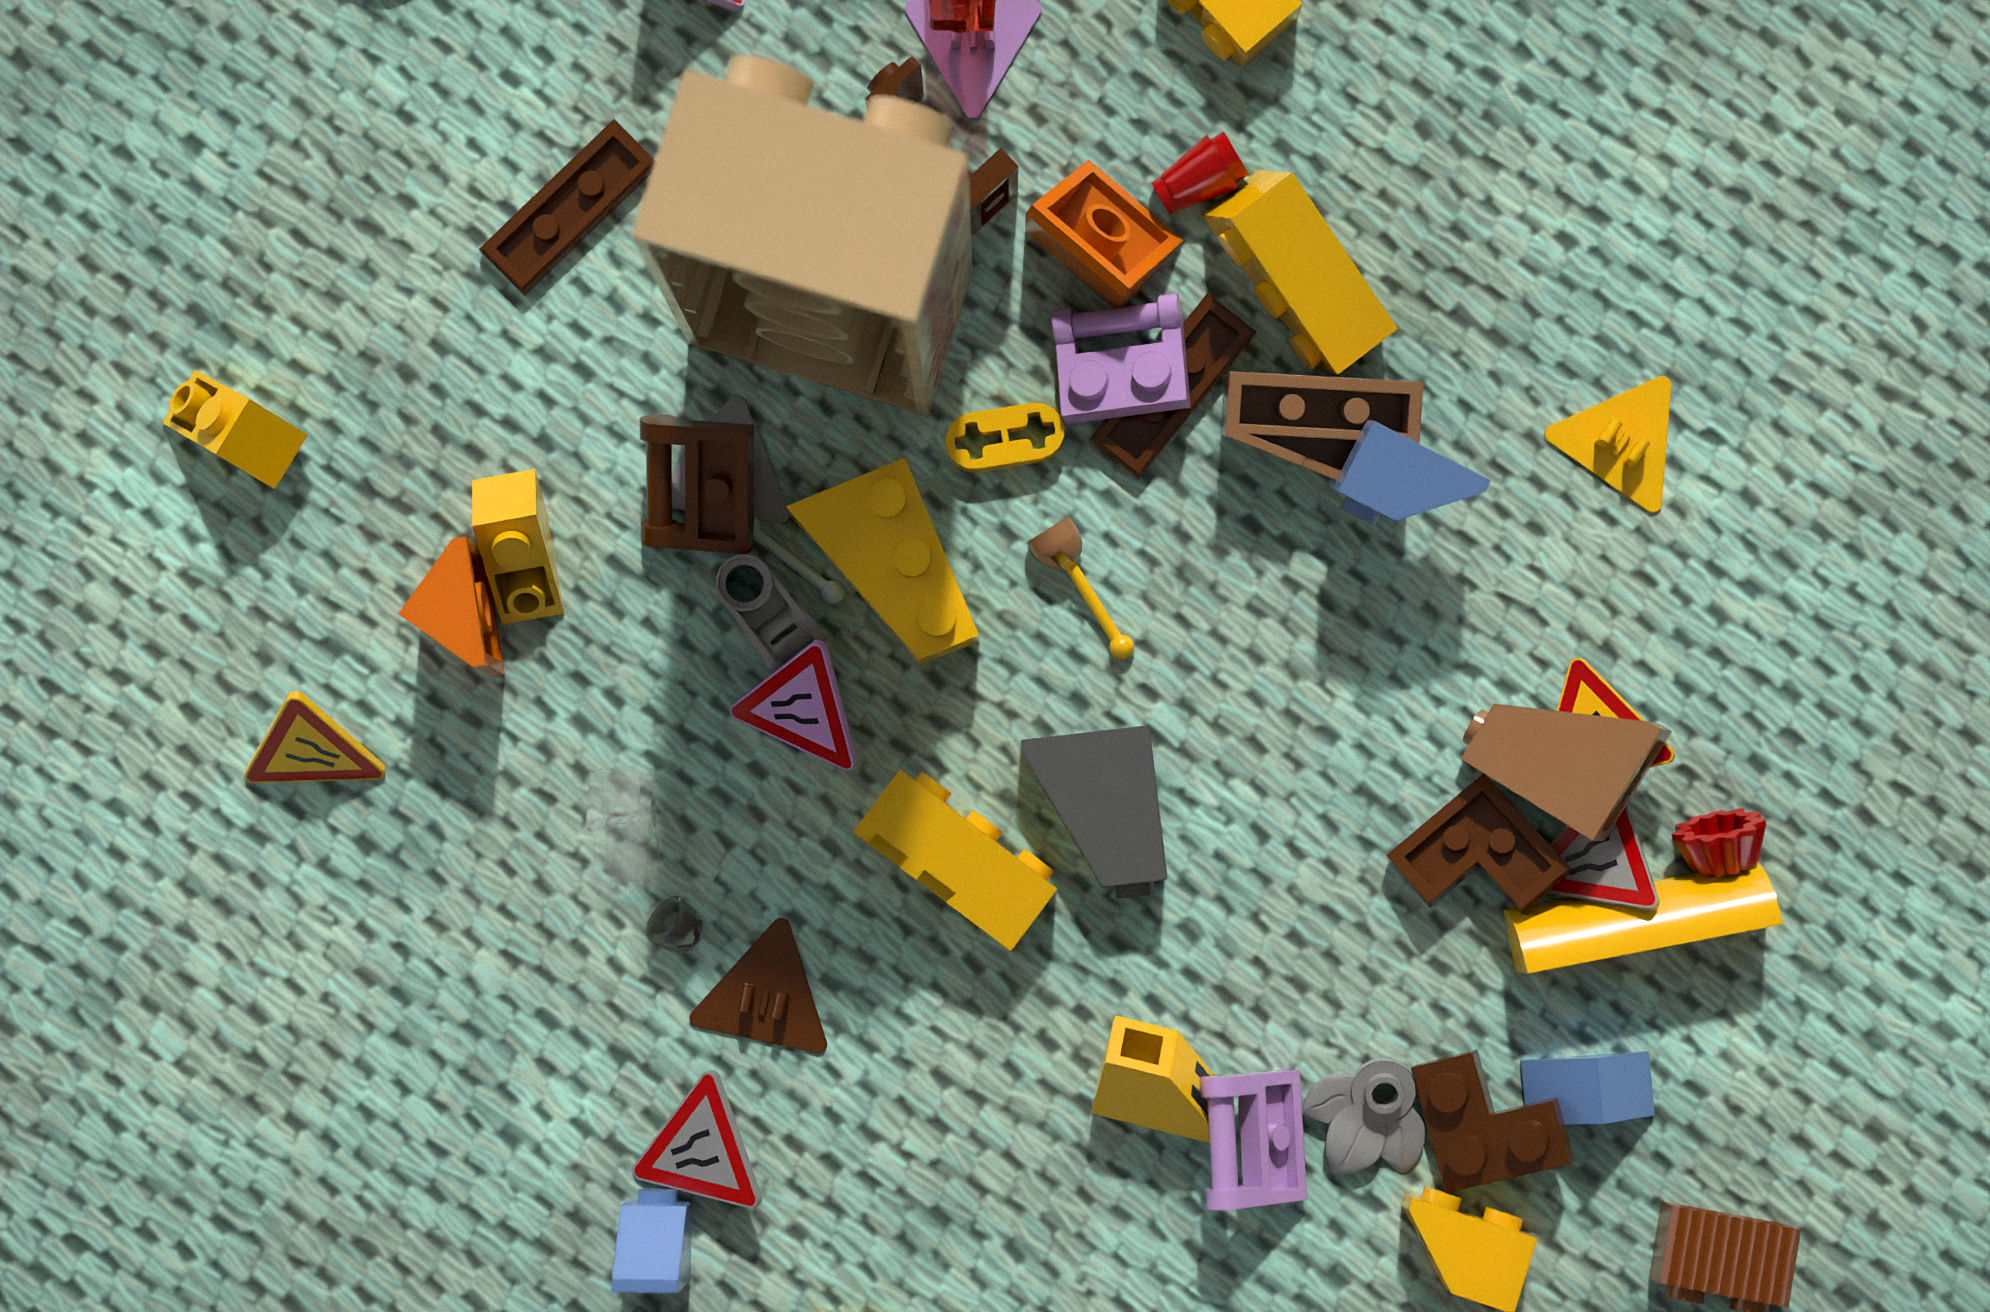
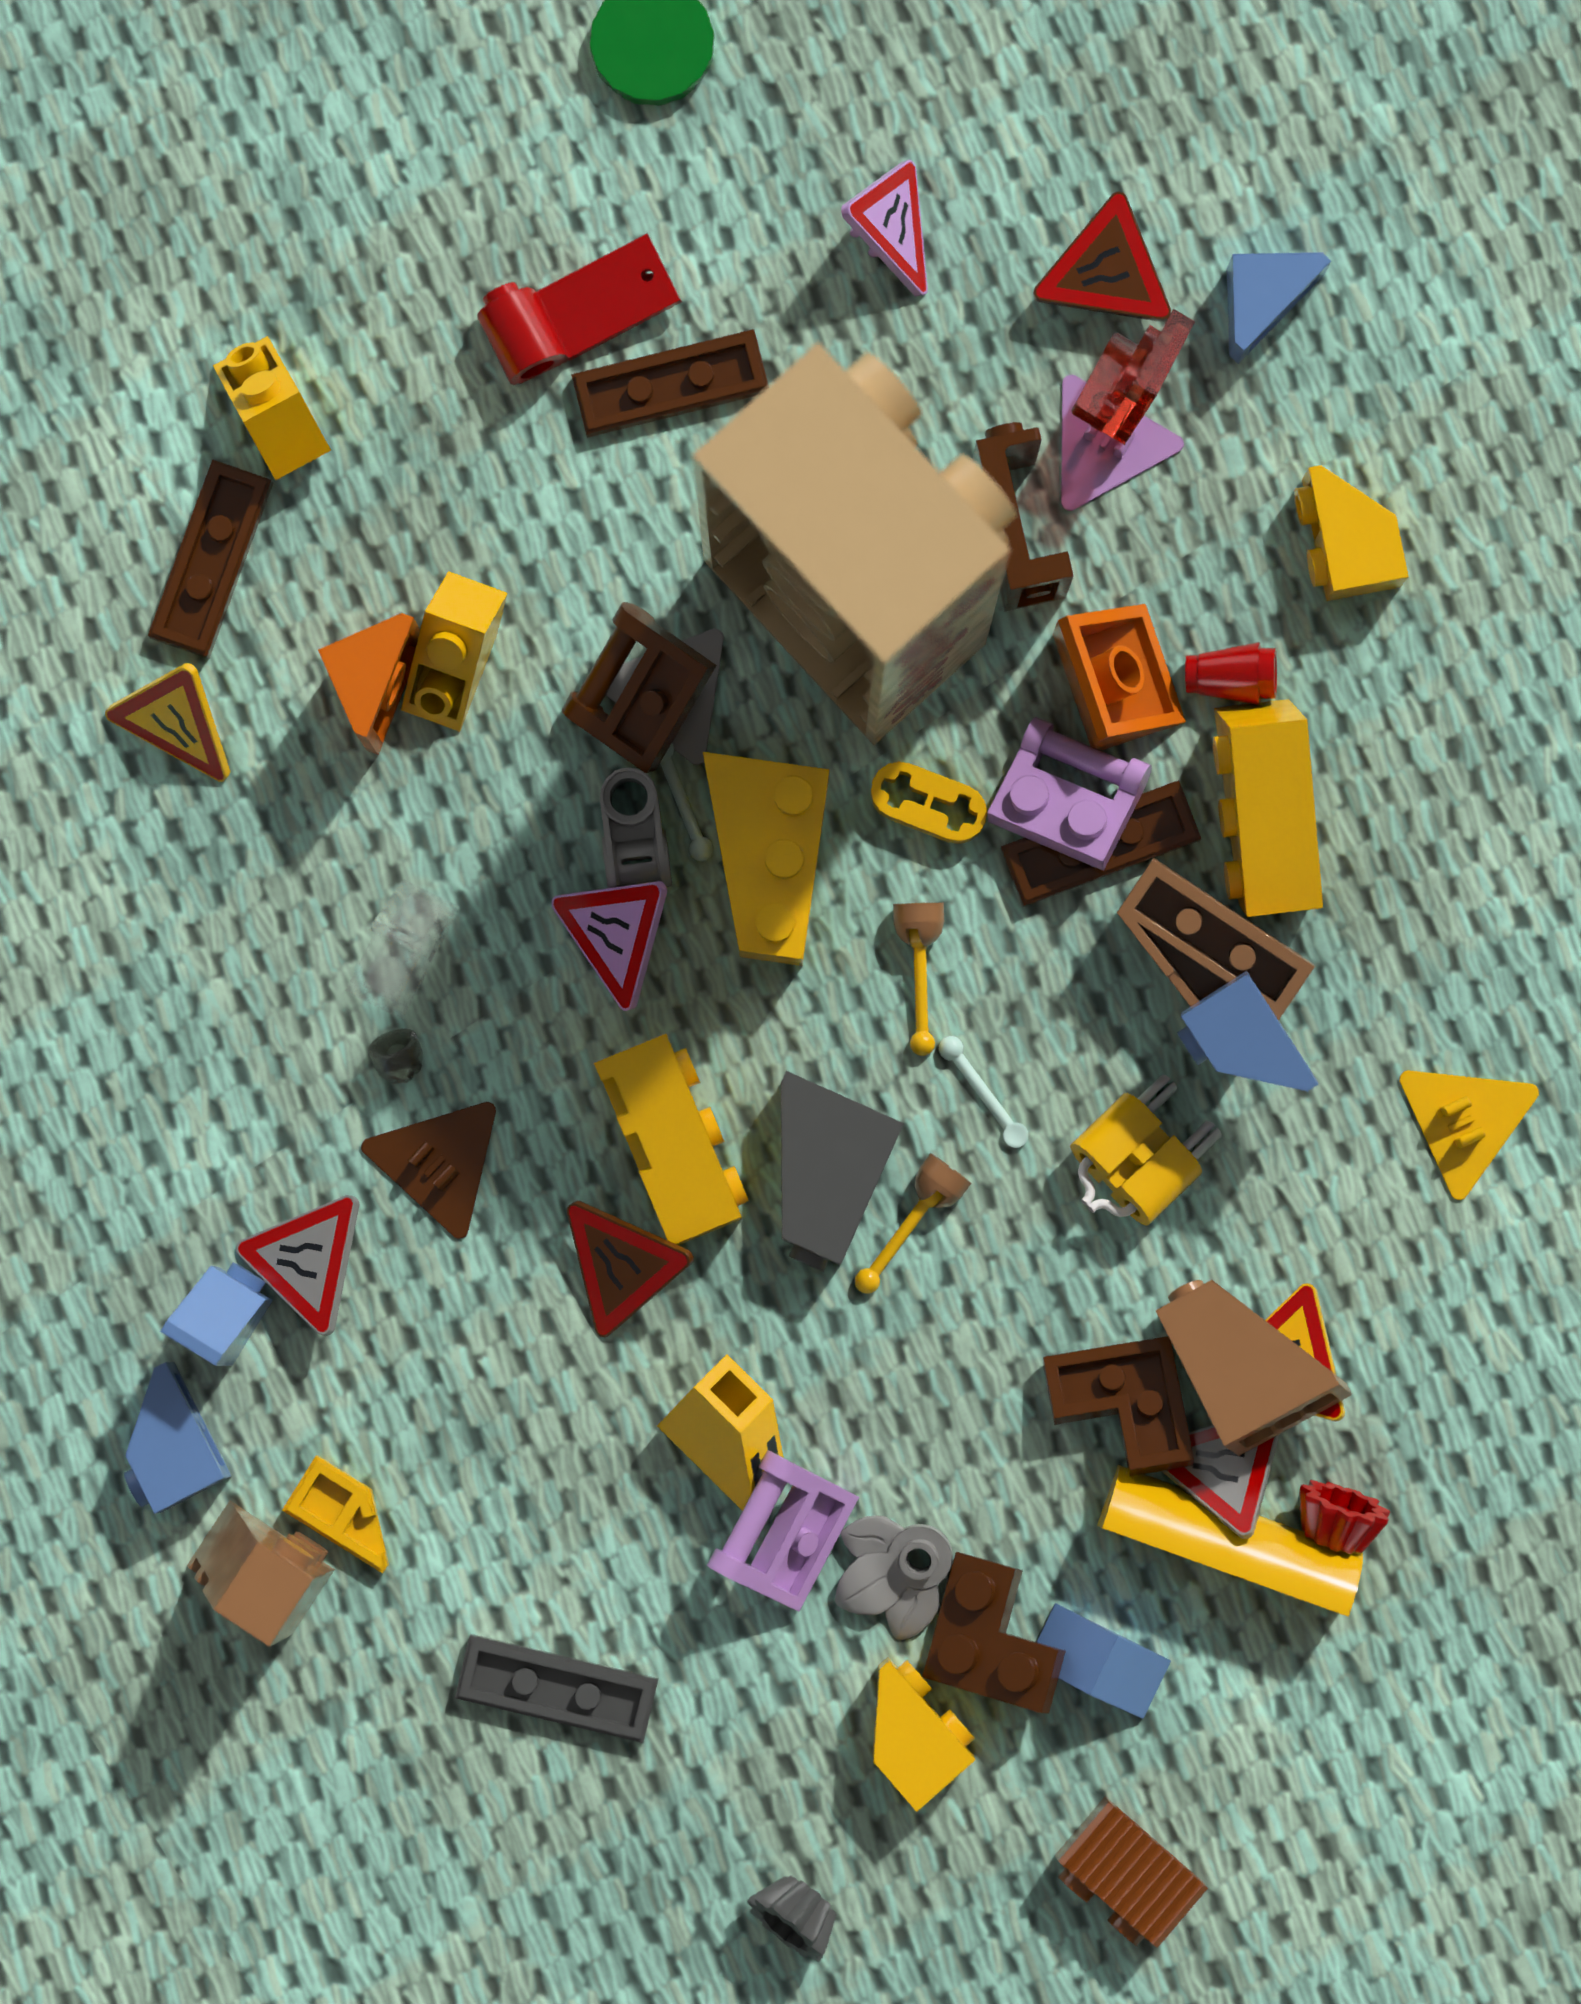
camera: 30 degrees right, 0 degrees up
(258, 590) = (210, 559): none -> reddish brown tile
(452, 192) = (576, 313): none -> red door
(976, 991) = (621, 1264): none -> piece
(1206, 763) = (936, 1188): none -> hinge
(1246, 678) = (1014, 1134): none -> light aqua hinge
(1364, 635) = (1138, 1157): none -> yellow piece

